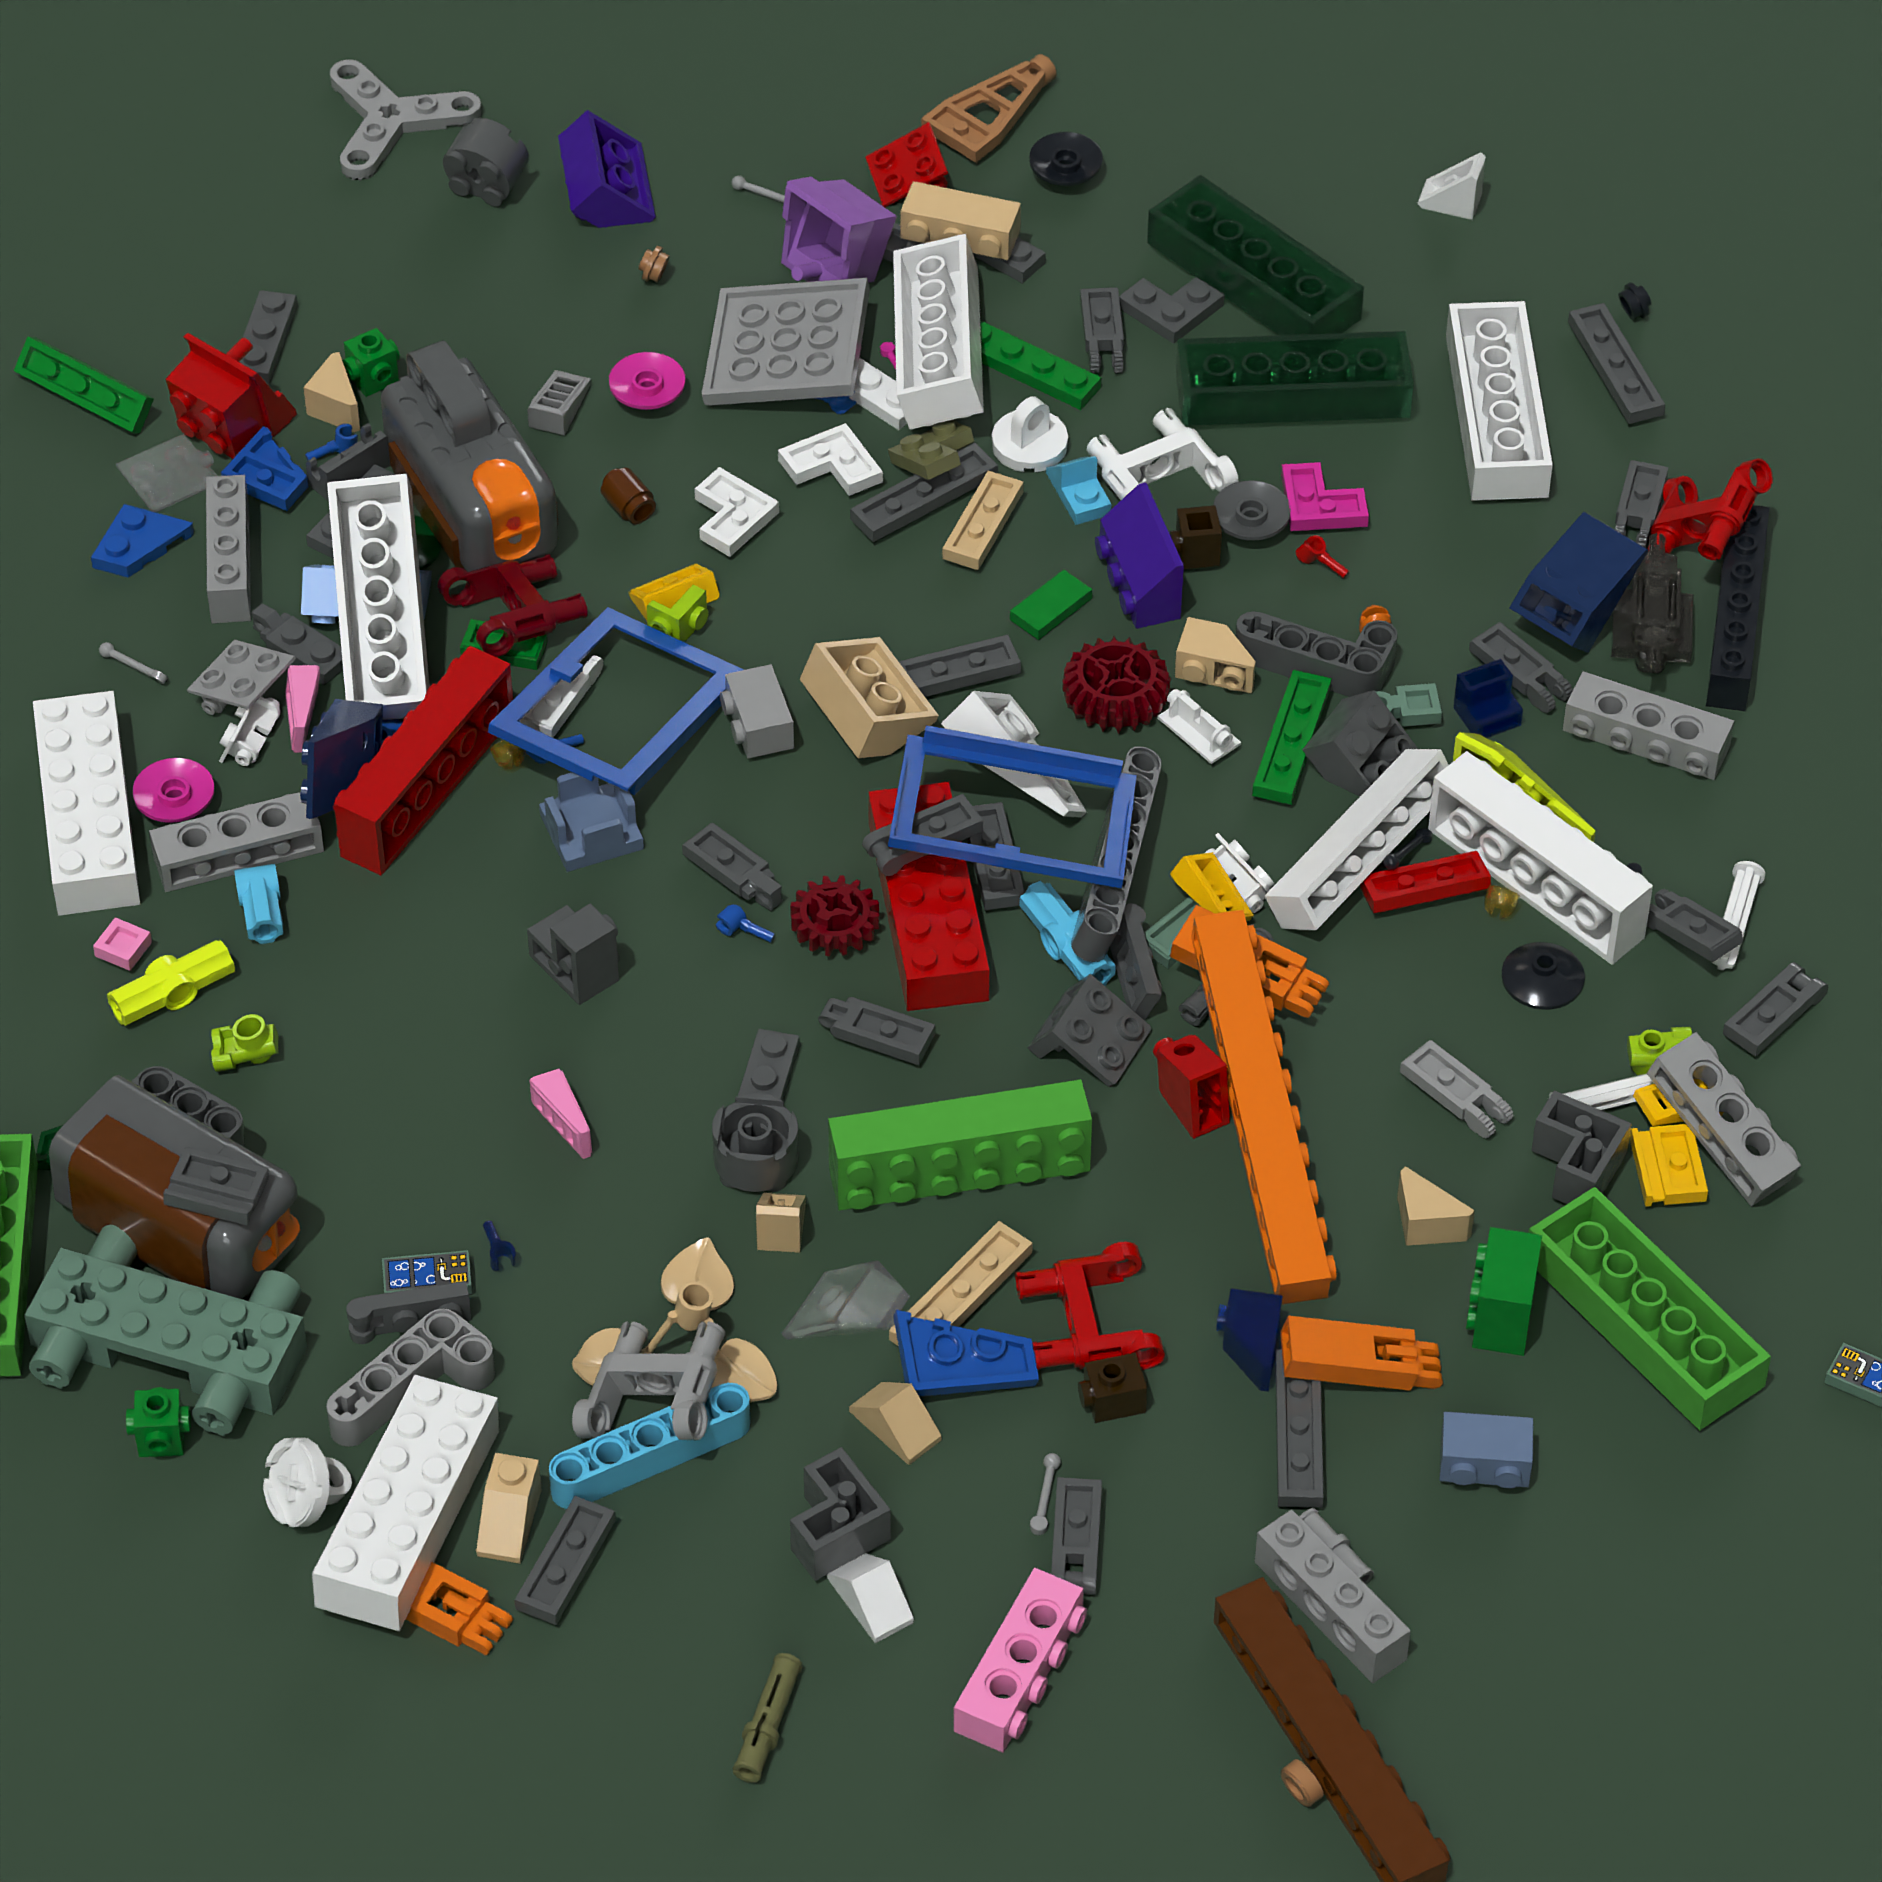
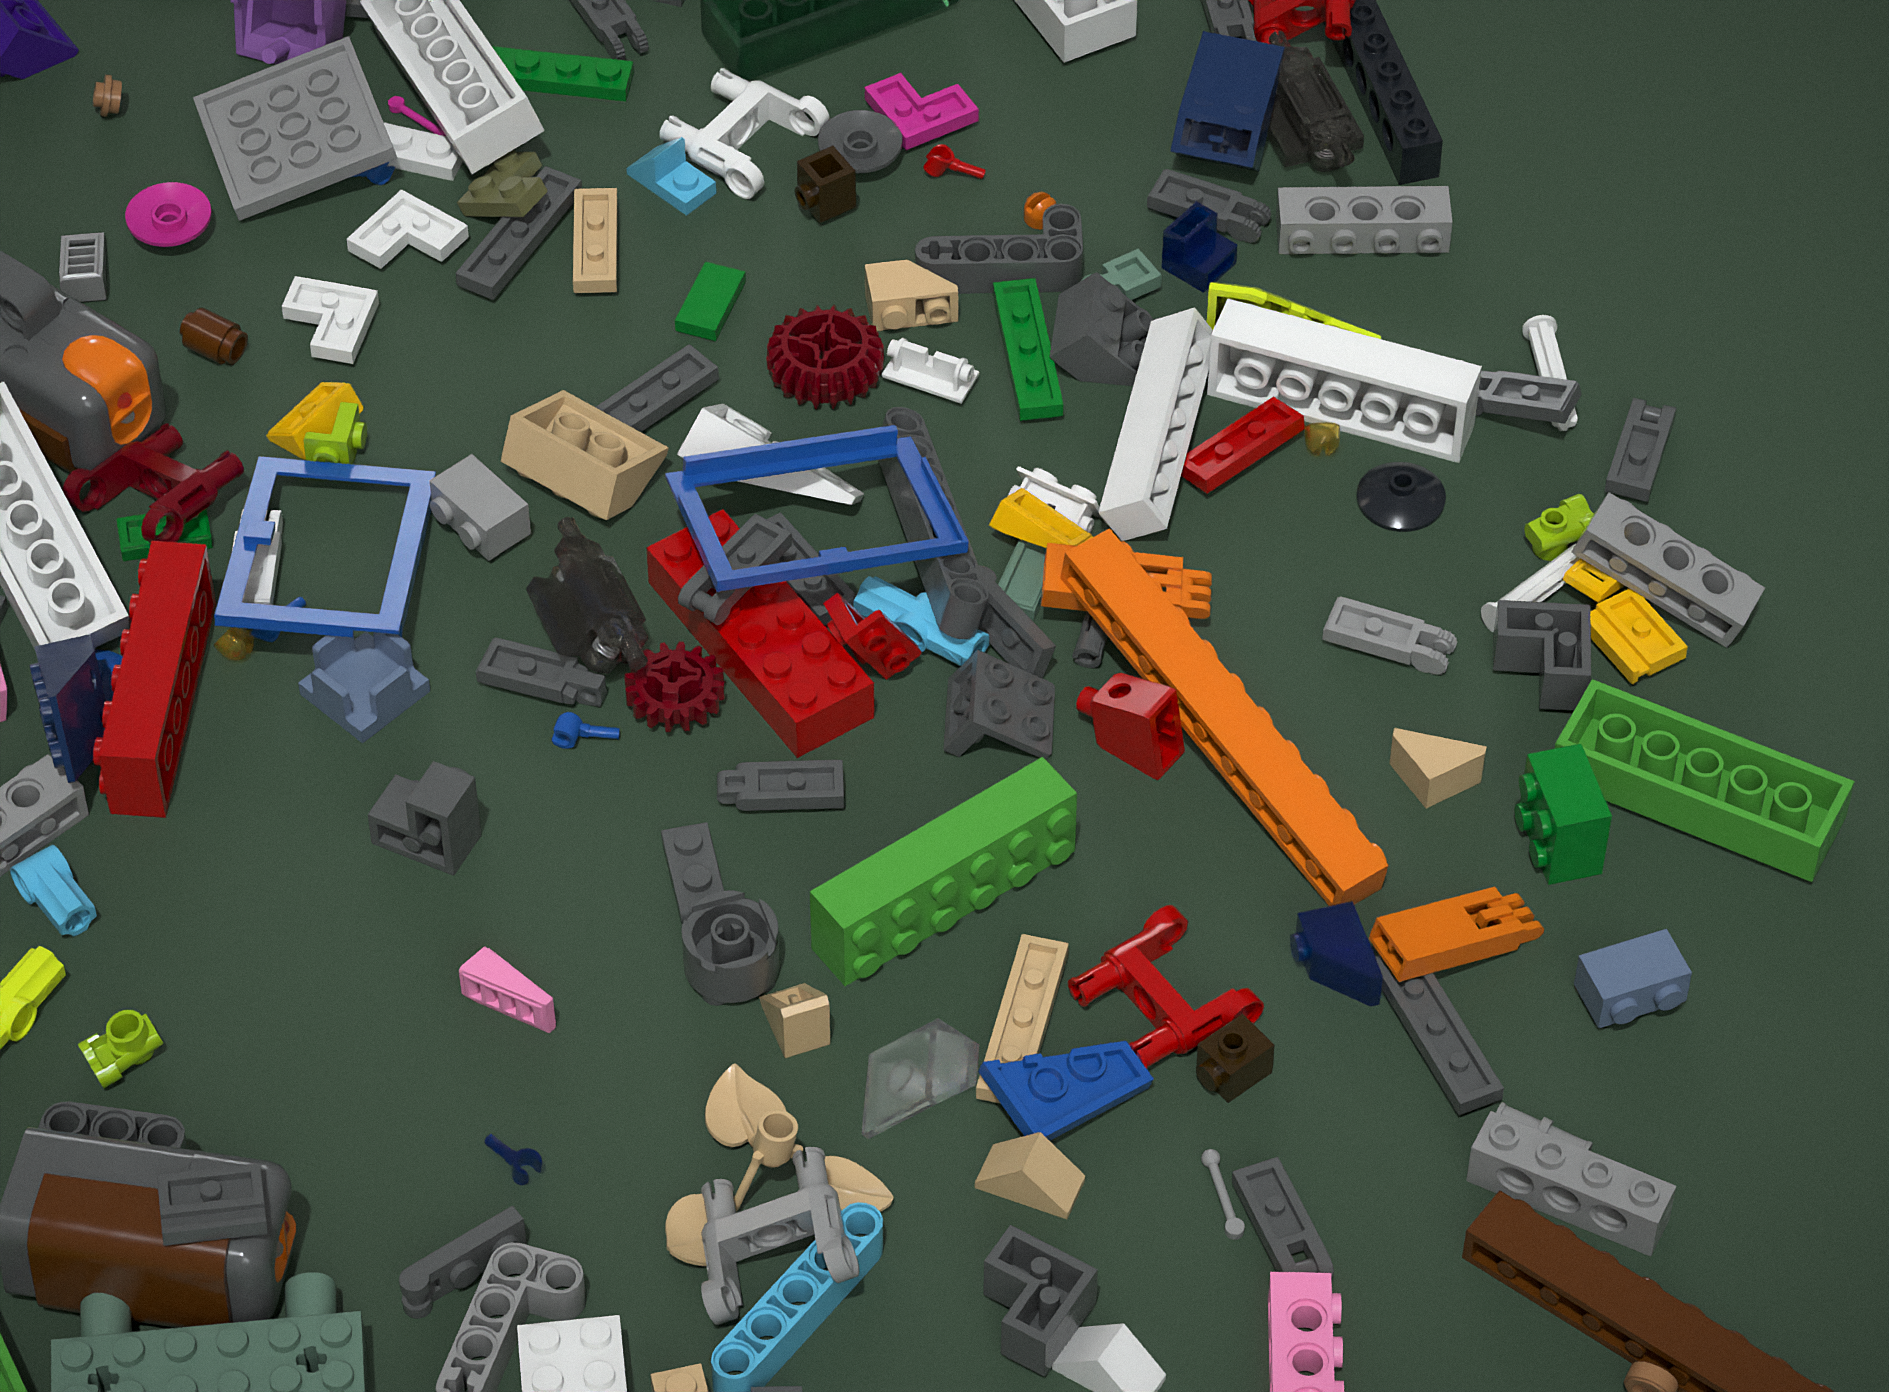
camera: 25 degrees left, 0 degrees up
(426, 1270) = (452, 1215): tile -> none
(795, 823) = (589, 605): none -> clear smoke piece
(1009, 931) = (872, 638): none -> red bracket
(1030, 437) = (594, 143): white tile -> none
(1141, 559) = (784, 222): dark purple slope -> none
(1392, 860) = (1201, 434): black hinge -> none

